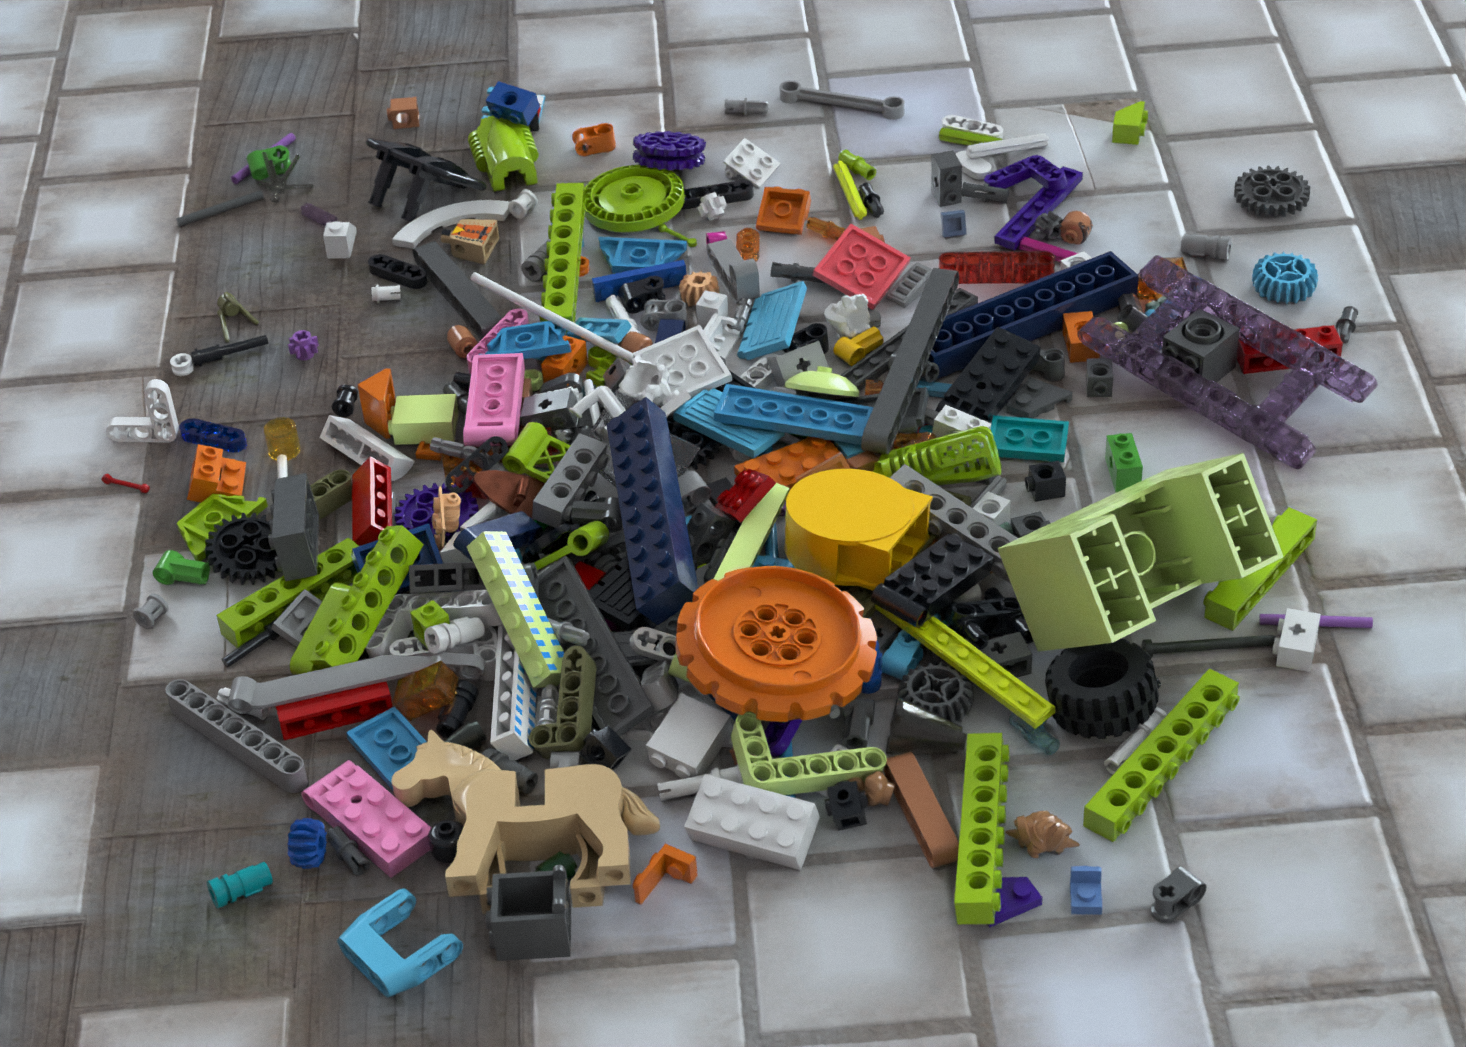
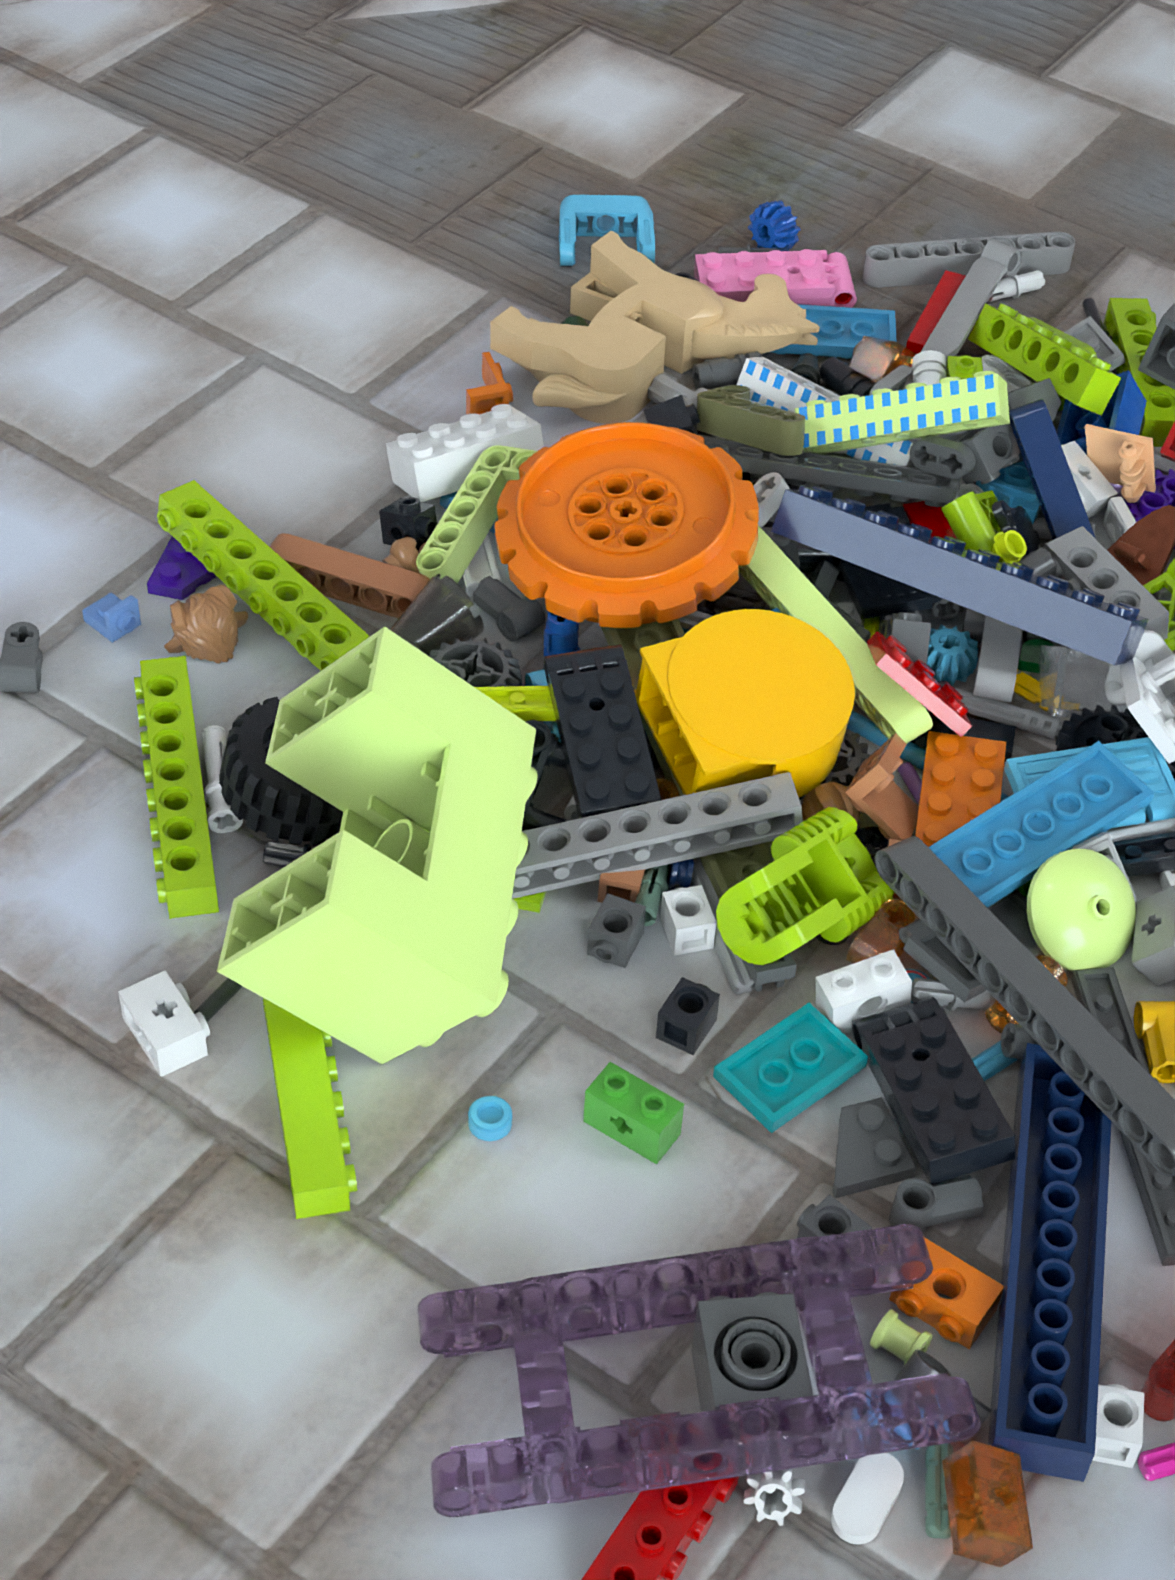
camera: 125 degrees right, 5 degrees up
(241, 883) = (779, 182): teal axle -> none
(529, 915) = (531, 276): dark grey container -> none
(567, 633) = (846, 448): light grey axle -> none
(592, 513) = (1009, 546): none -> neon yellow plate
(1325, 621) = (173, 1083): medium lavender bar -> none

